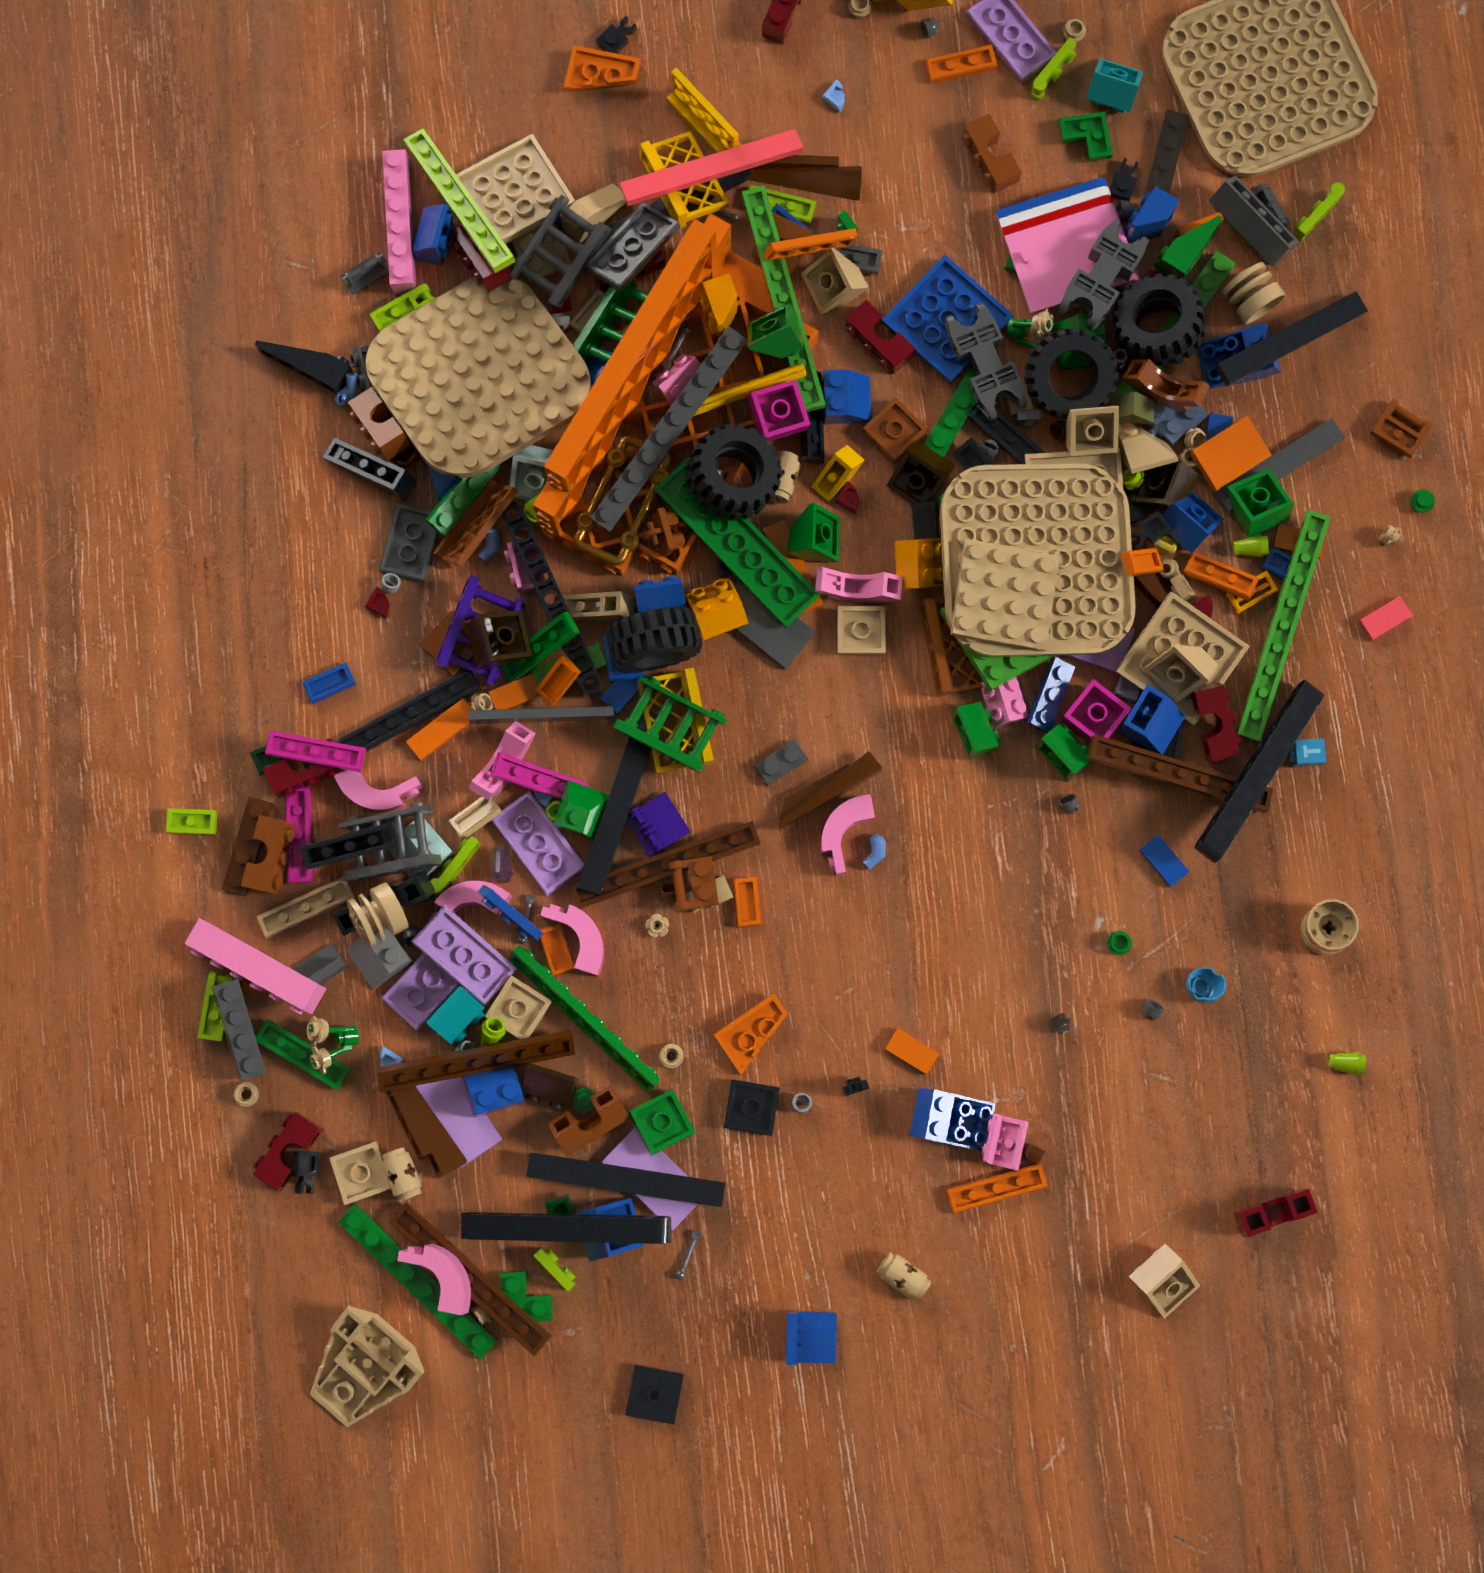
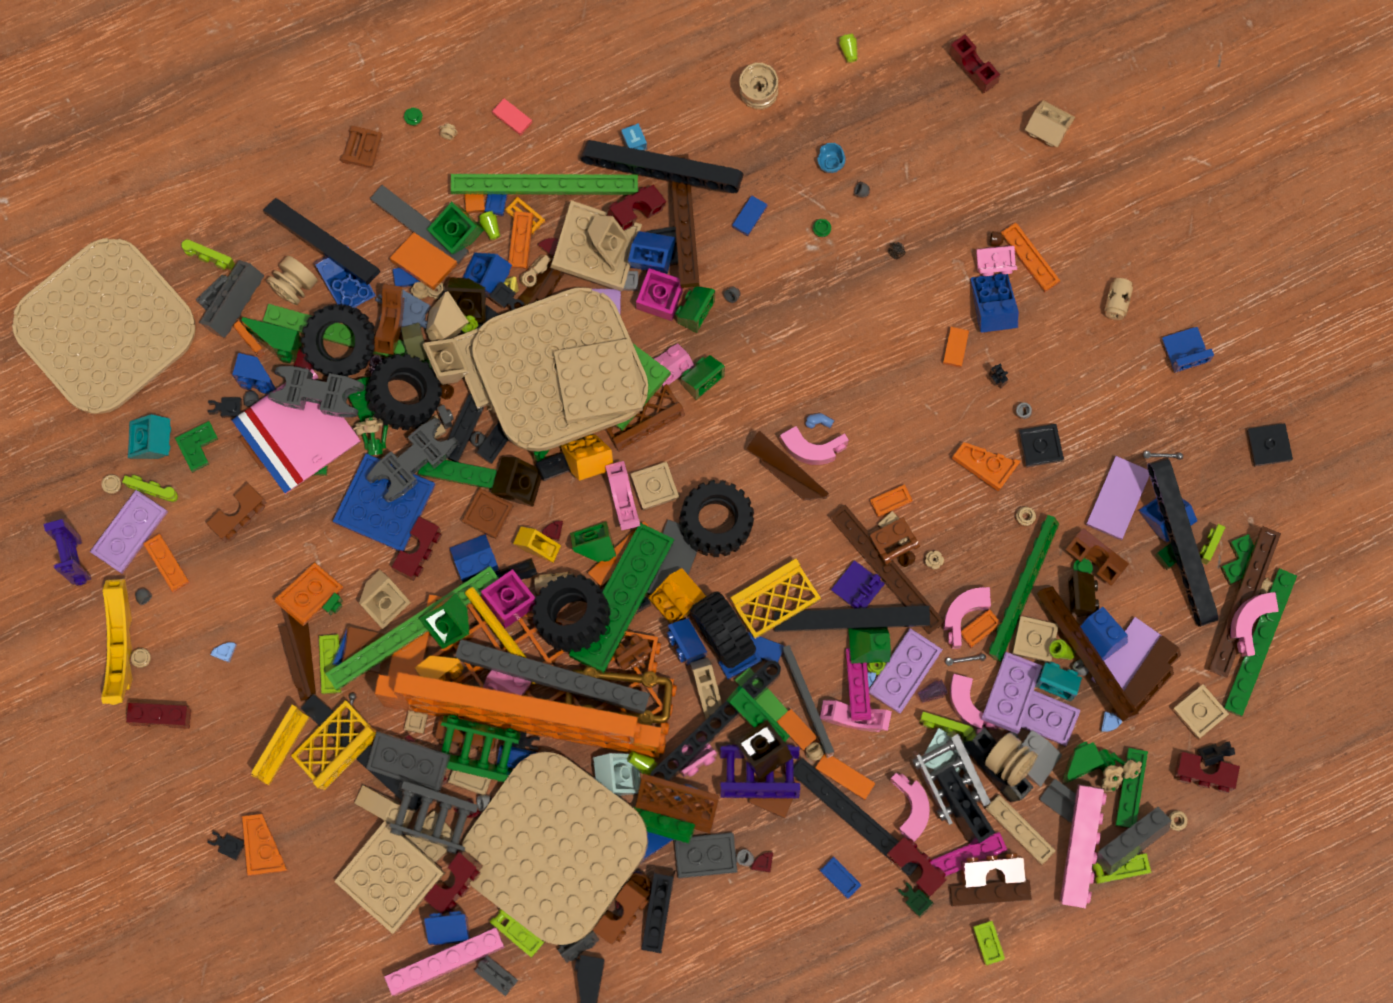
camera: 110 degrees left, 5 degrees down
(315, 751) = (902, 859): dark pink tile -> none
(349, 391) = (600, 950): medium blue arm -> none
(349, 1004) = (1082, 761): none -> green slope
(364, 1366) = (1337, 654): tan wedge -> none
(405, 1185) = (1197, 674): tan piece -> none
(459, 200) = (414, 915): lime plate -> none
(475, 817) = (904, 725): tan tile -> none
(509, 914) = (970, 667): blue plate -> none
(557, 680) = (778, 695): orange tile -> none
(625, 1179) = (1129, 516): black tile -> none
(650, 737) = (798, 608): green fence -> none
(661, 1122) = (1077, 504): green plate -> none
(711, 167) = (322, 722): coral tile -> none
(781, 762) = (777, 512): dark grey plate -> none
(794, 651) = (723, 495): none -> black tyre
(810, 244) = (363, 620): orange tile -> none
(864, 258) = (355, 585): dark grey plate -> none
(867, 201) = (308, 594): none -> orange tile
(1050, 695) = (656, 333): blue plate -> none
(1142, 562) = (534, 295): orange tile -> none
(1167, 151) = (195, 382): clear smoke plate -> none

